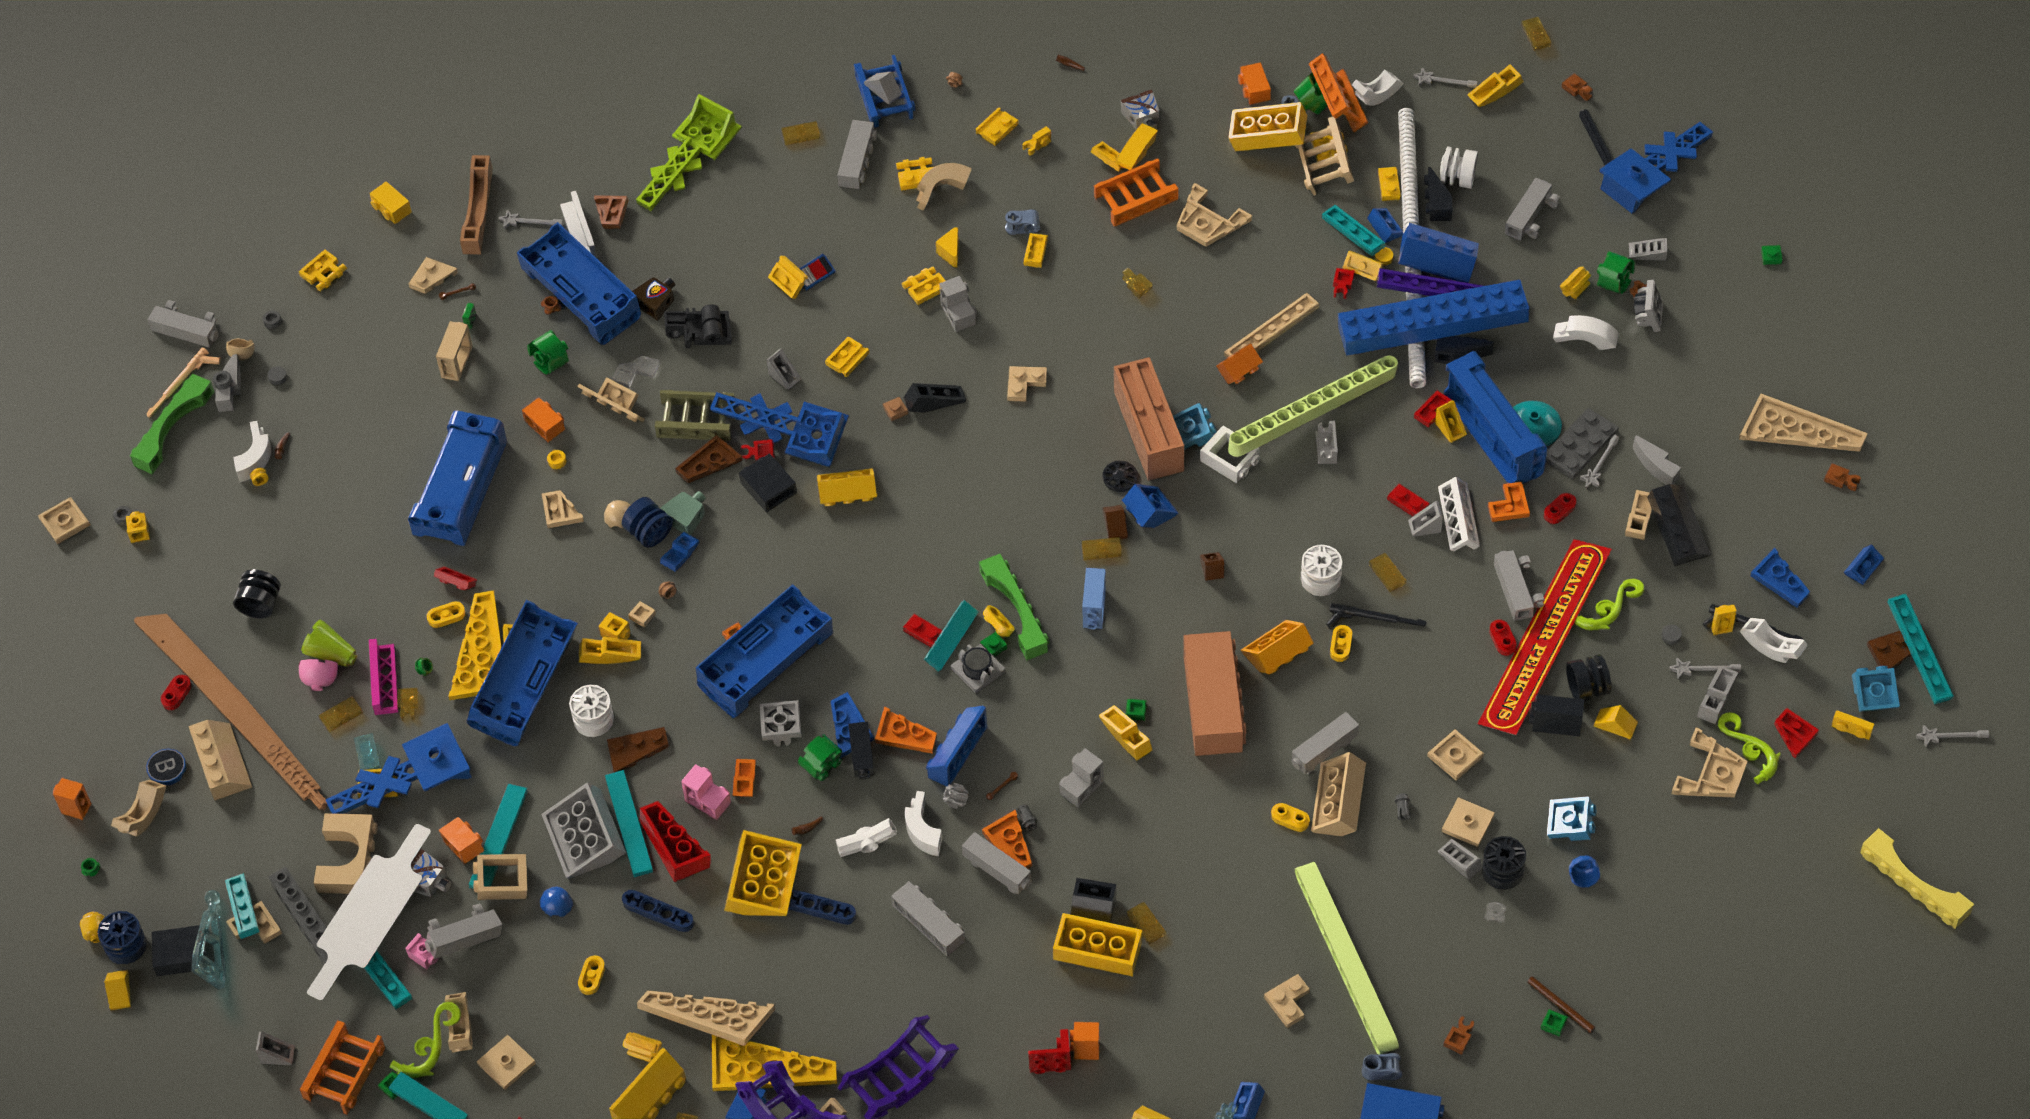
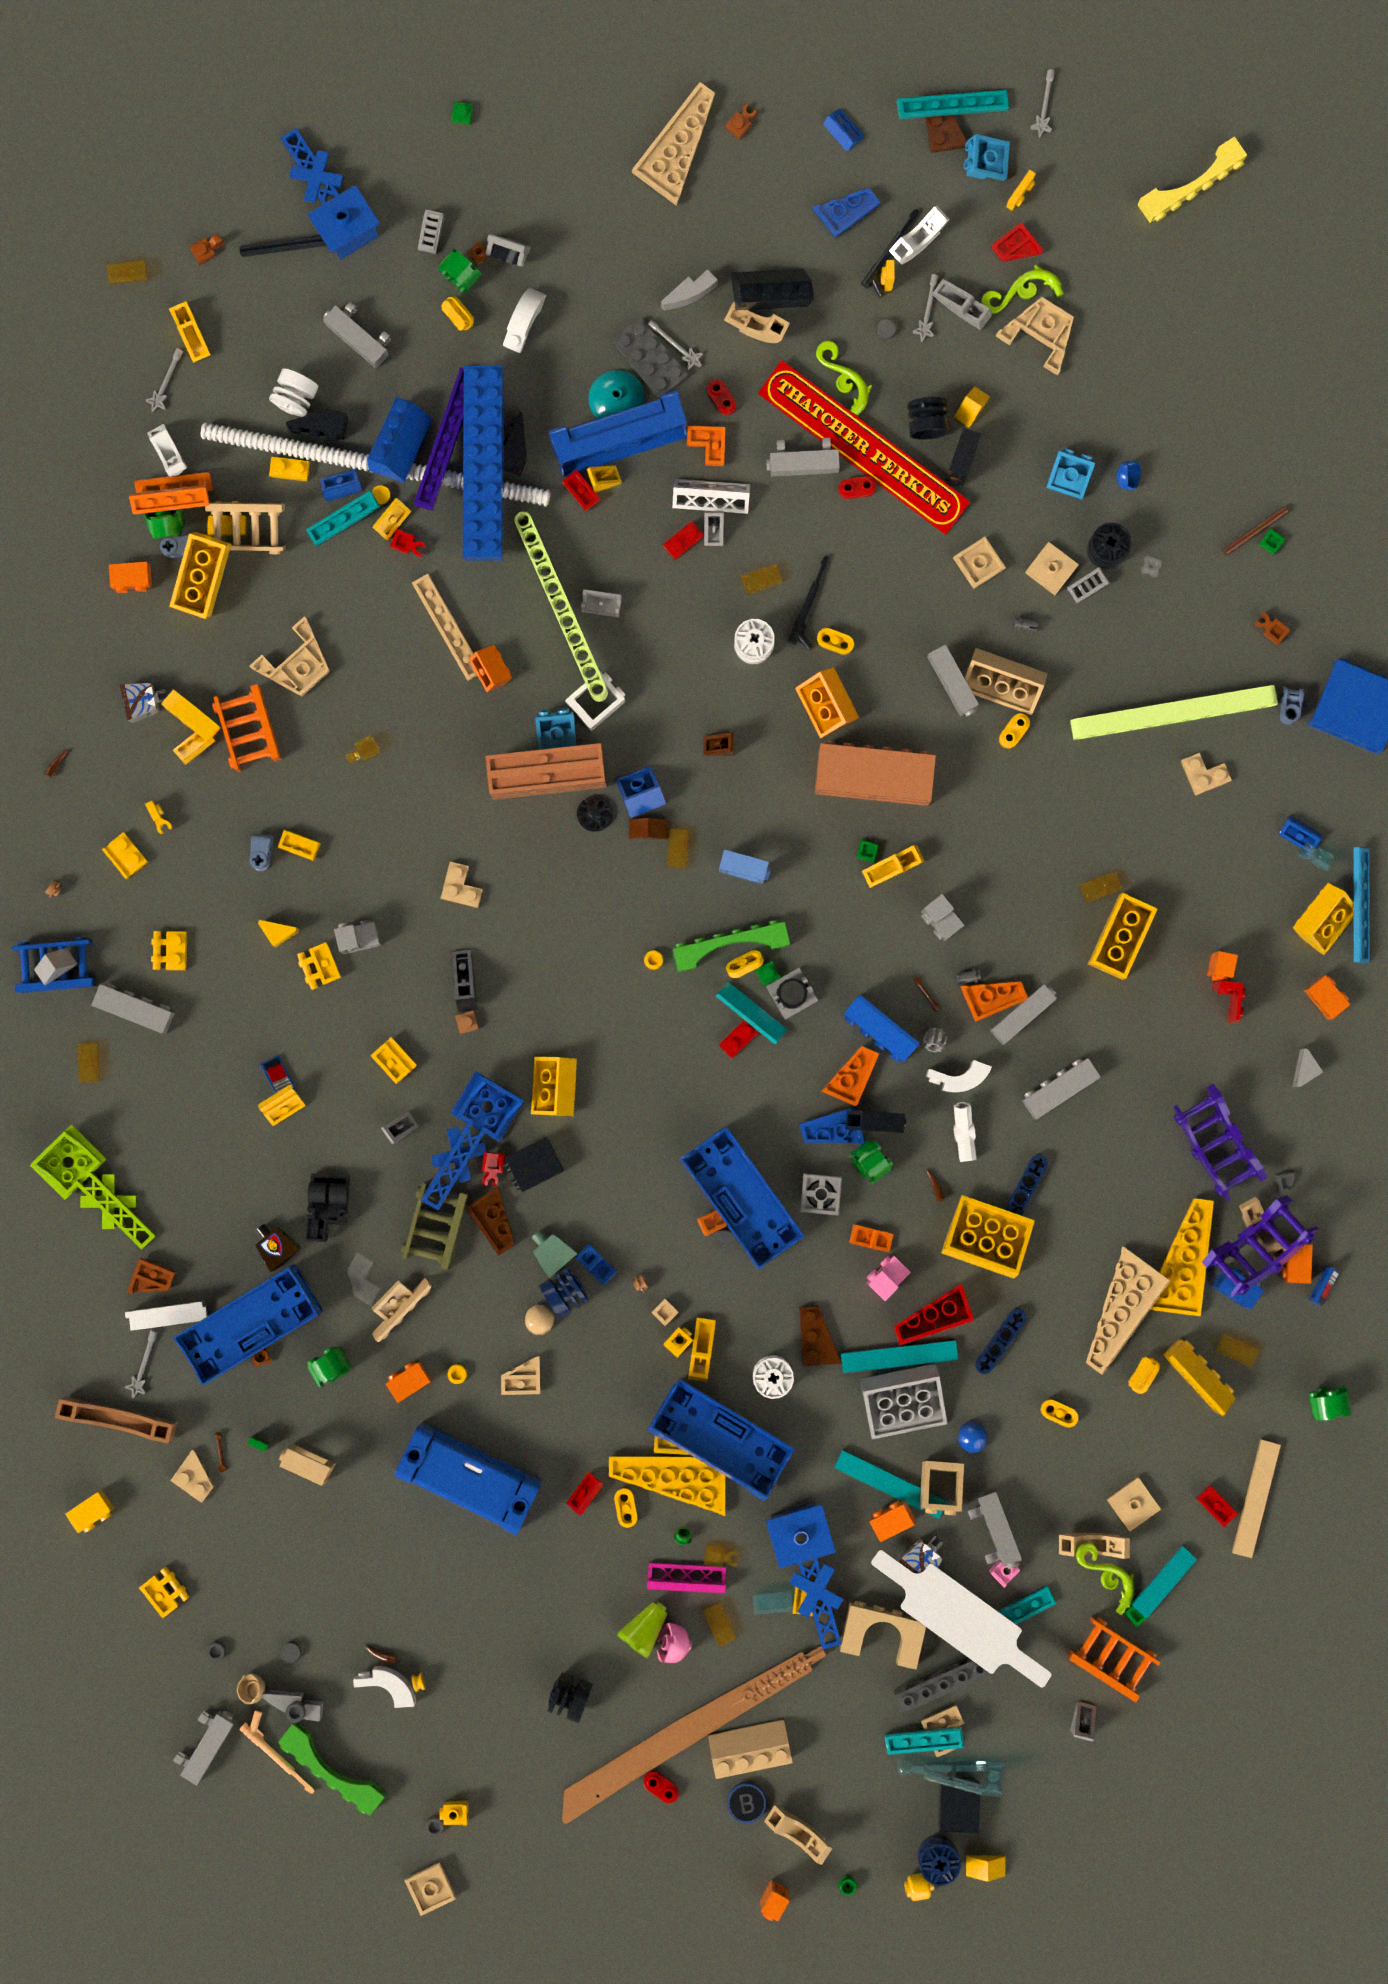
camera: 80 degrees left, 30 degrees up
(942, 174) = (186, 930): tan arch -> none
(987, 548) = (653, 960): none -> yellow tile
(1094, 900) = (1077, 932): black slope -> none

